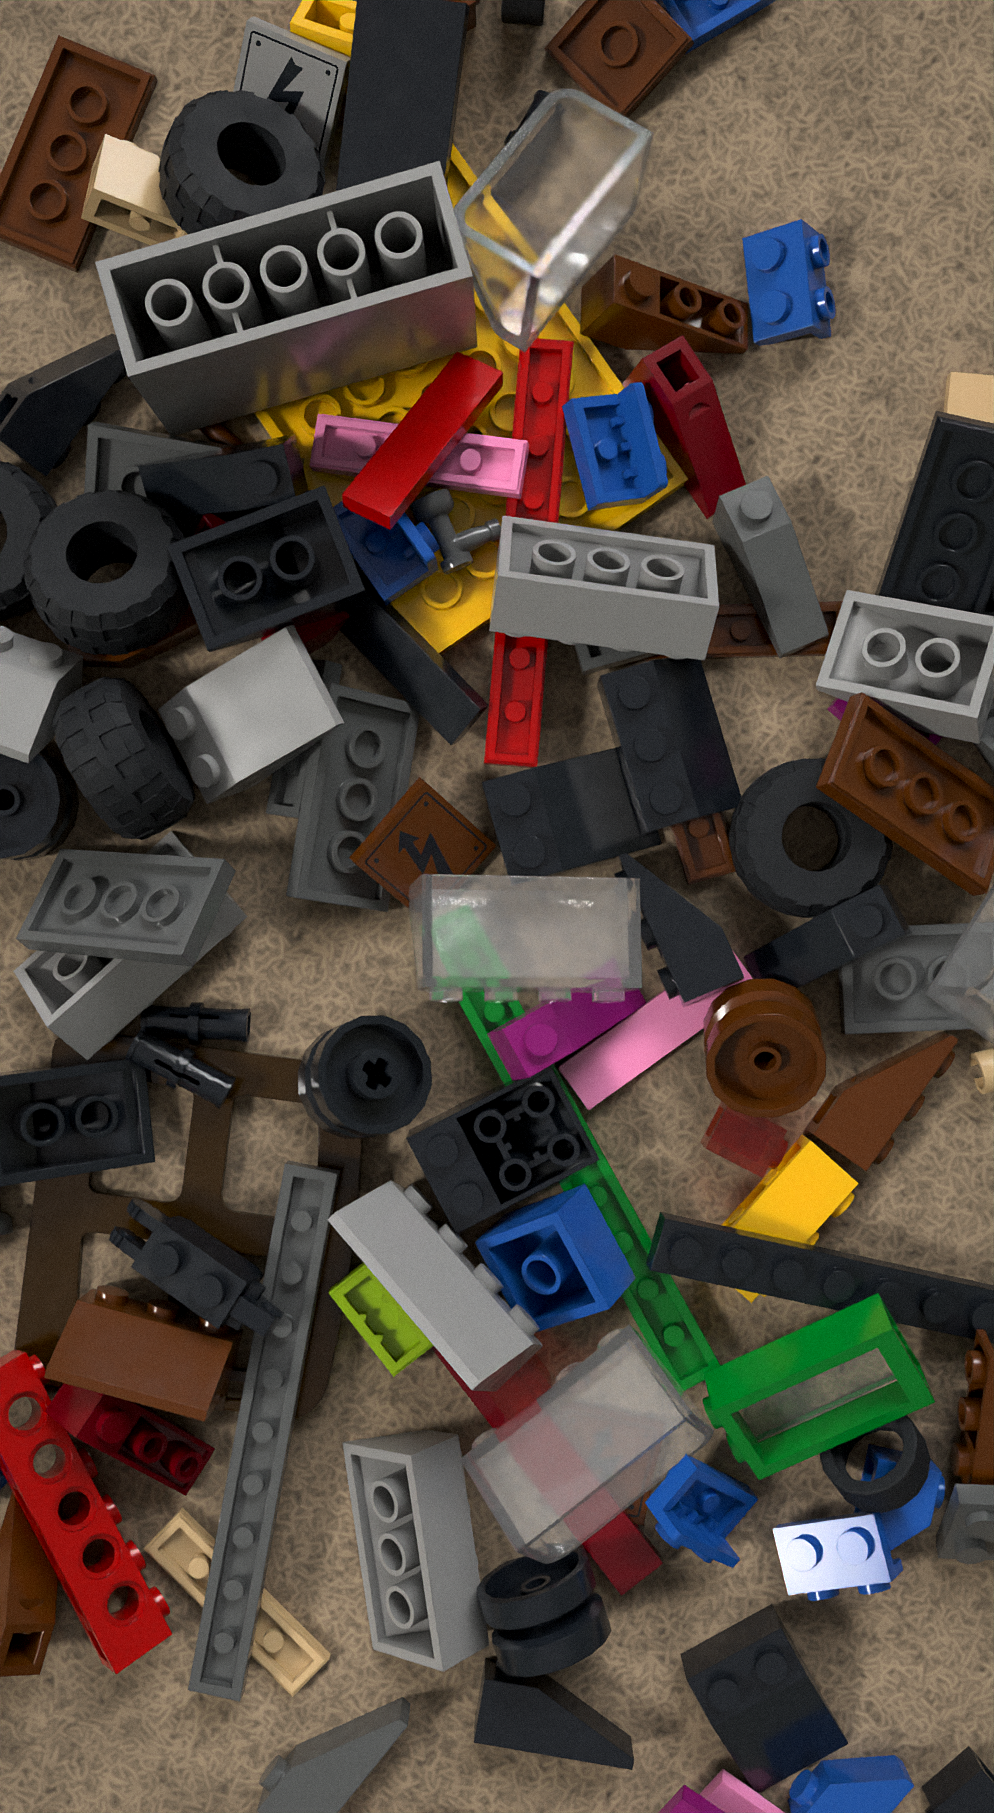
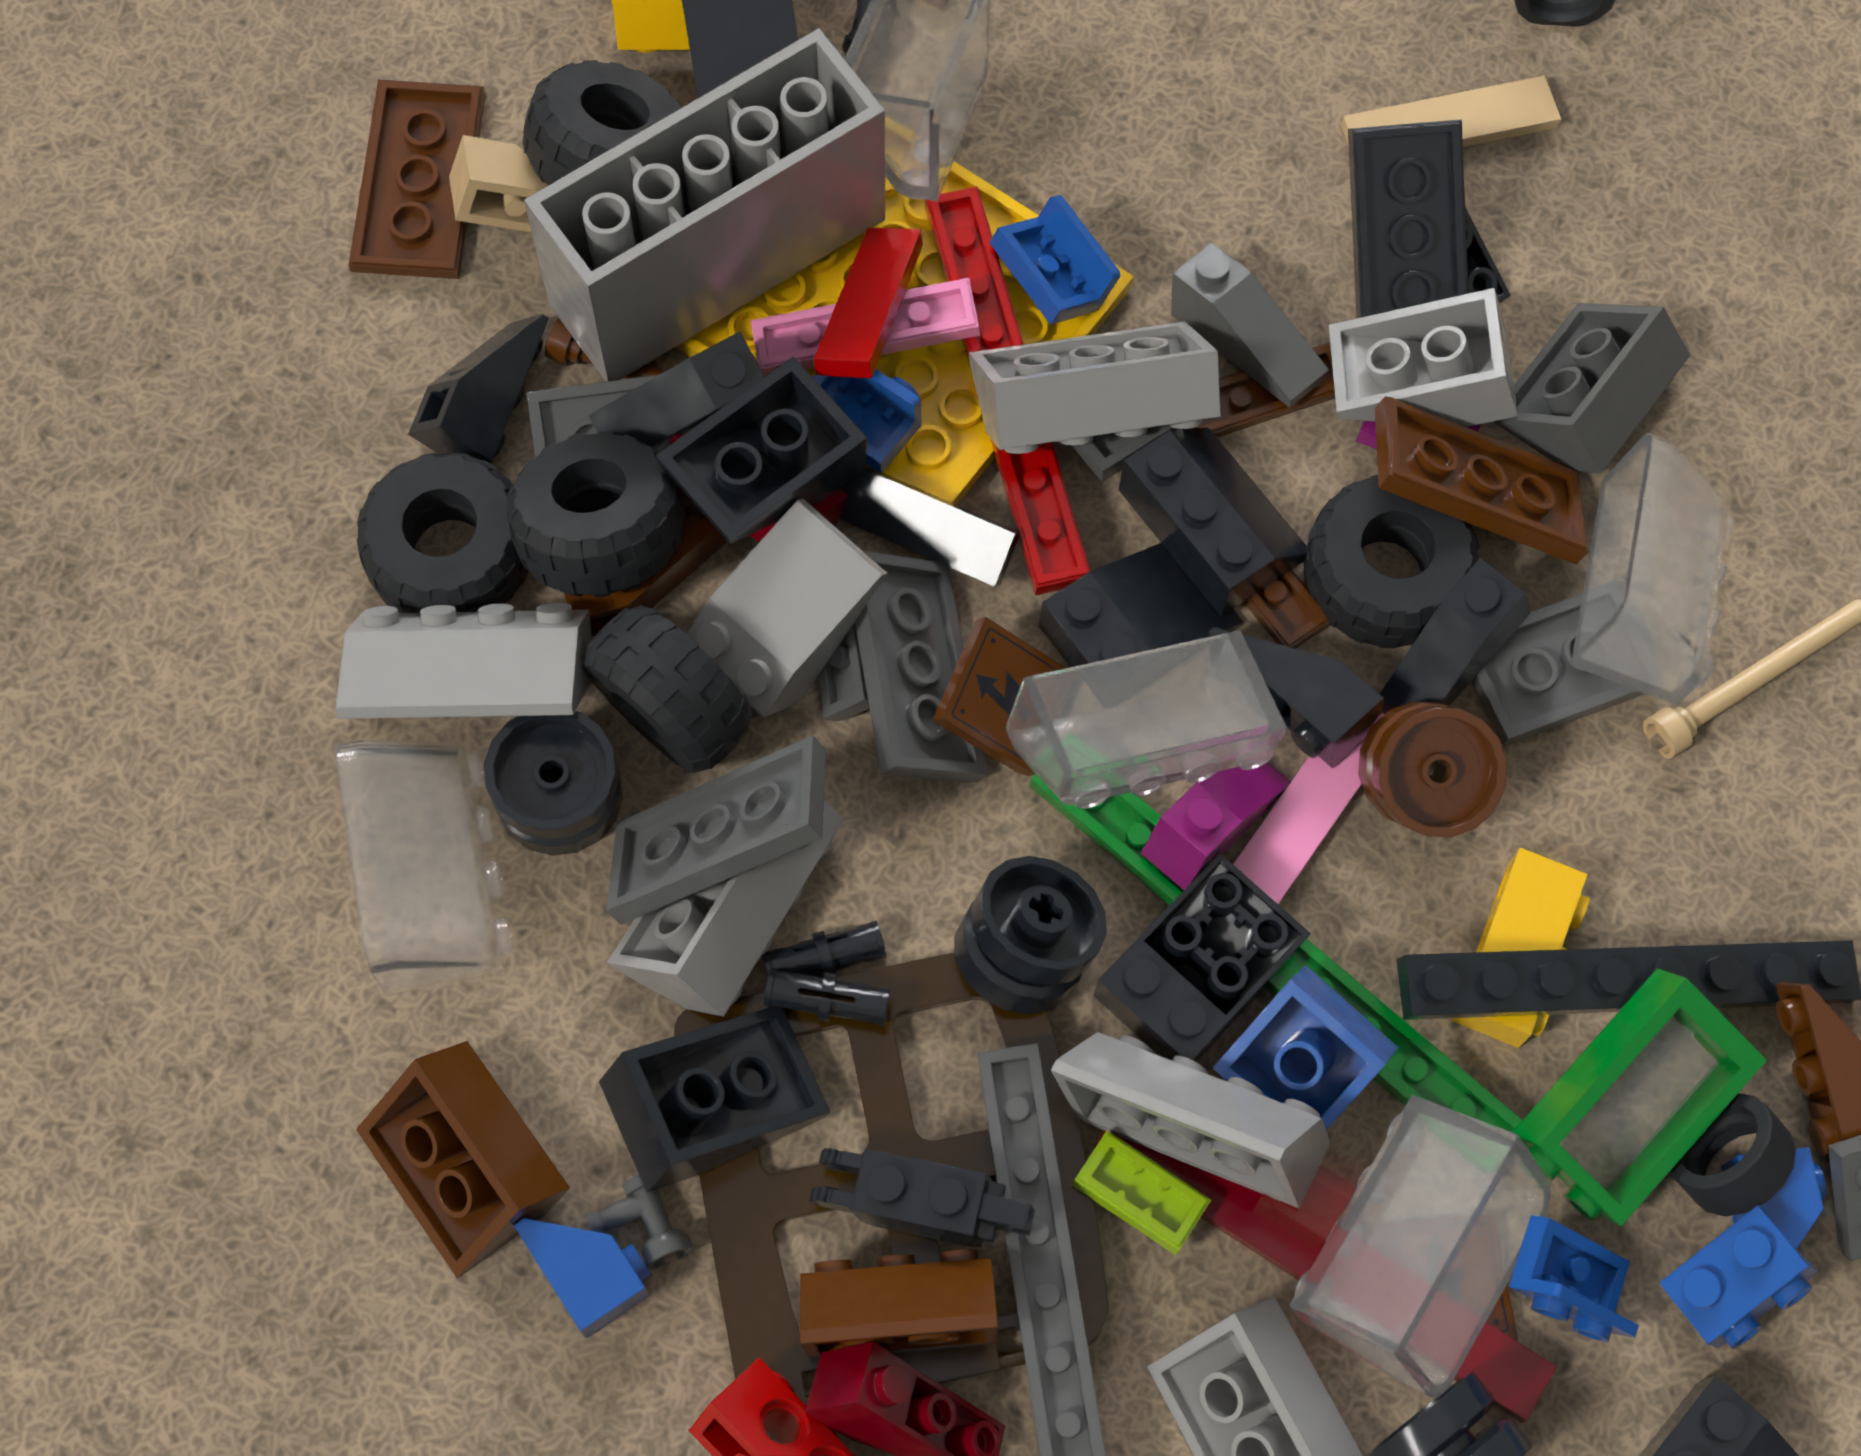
camera: 20 degrees left, 20 degrees down
(297, 75) = (627, 35): light grey tile -> none
(454, 547) = (934, 397): dark grey piece -> none
(649, 308) = (1041, 143): reddish brown slope -> none
(690, 421) = (1118, 223): dark red slope -> none
(745, 1140) = (1451, 876): clear red brick -> none
(788, 283) = (1157, 87): blue bracket -> none
(871, 1105) = (1565, 803): reddish brown slope -> none

